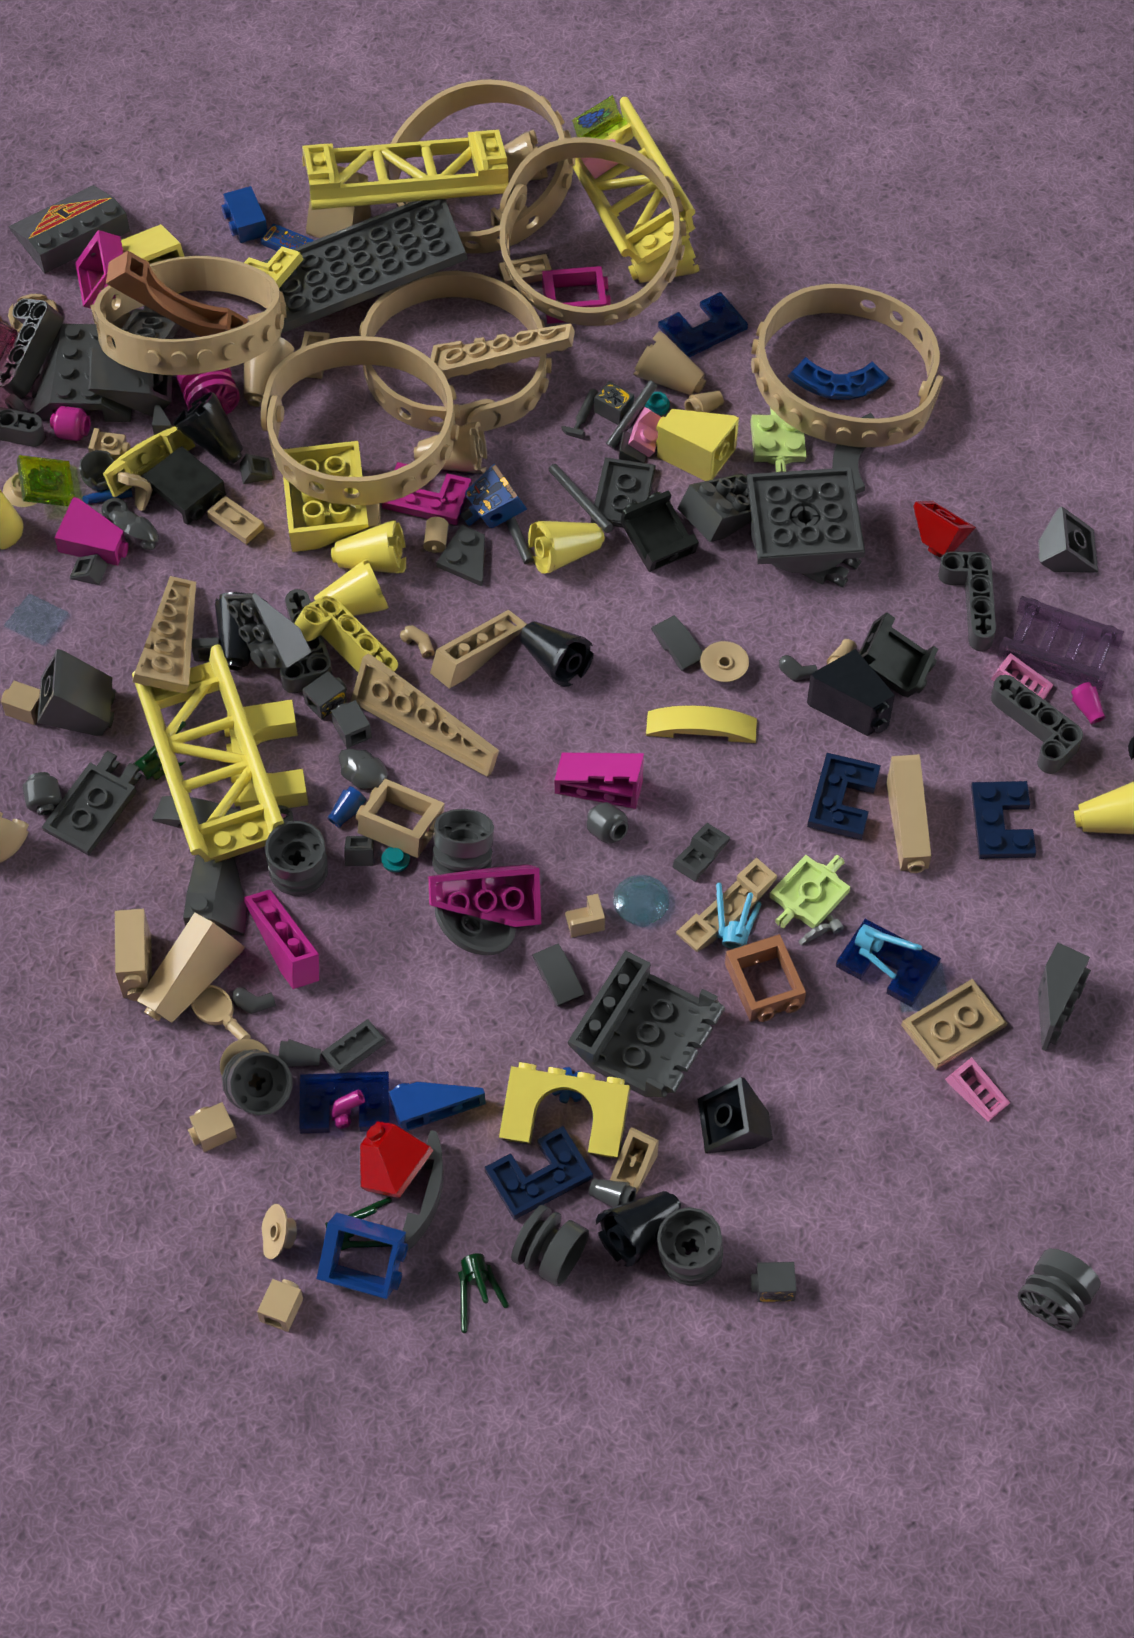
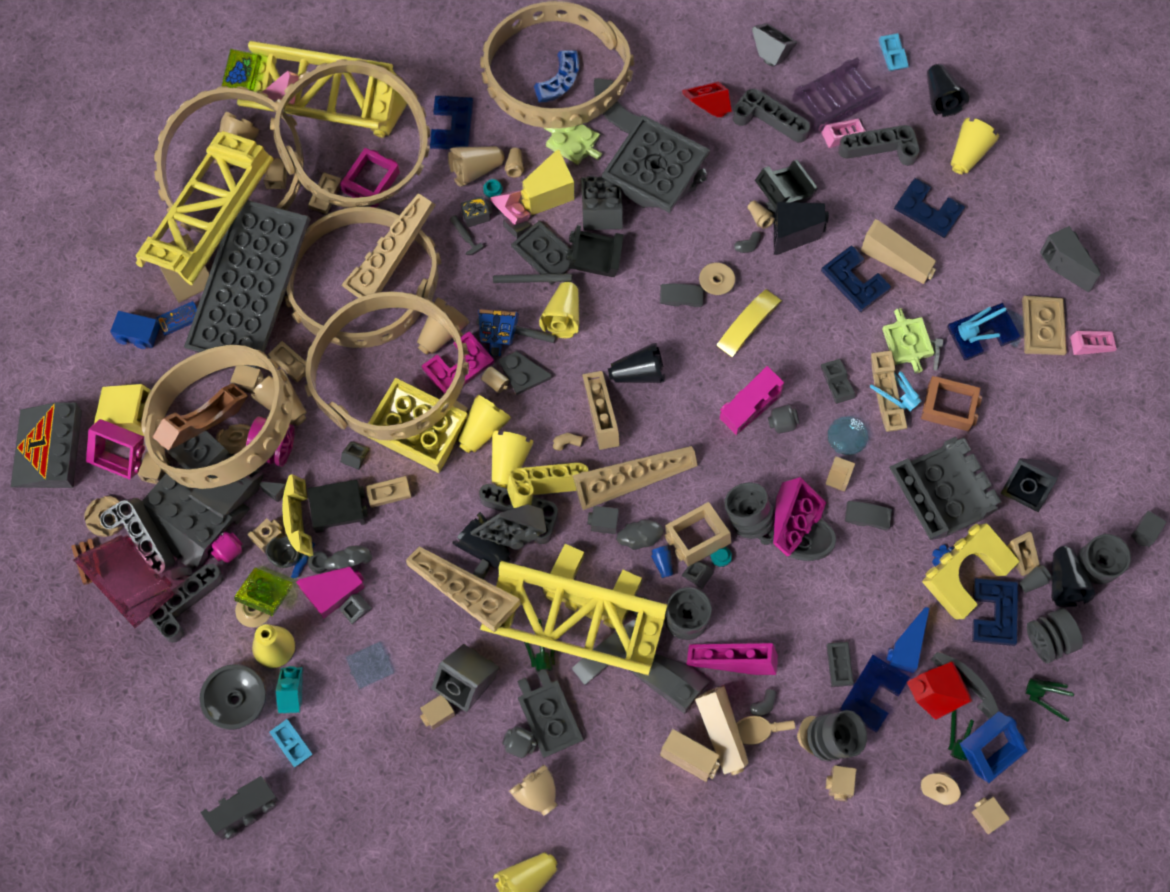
camera: 55 degrees left, 10 degrees up
(142, 488) = (319, 535): tan hair -> none
(210, 429) = (308, 461): black cone -> none
(280, 265) = (207, 337): light yellow plate -> none
(298, 1054) = (822, 701): dark grey cone -> none
(325, 694) = (570, 521): dark grey brick -> none
(343, 1106) = (880, 692): dark pink arm -> none
(632, 414) = (494, 207): dark grey bar -> none
(1087, 700) = (885, 109): dark pink cone -> none

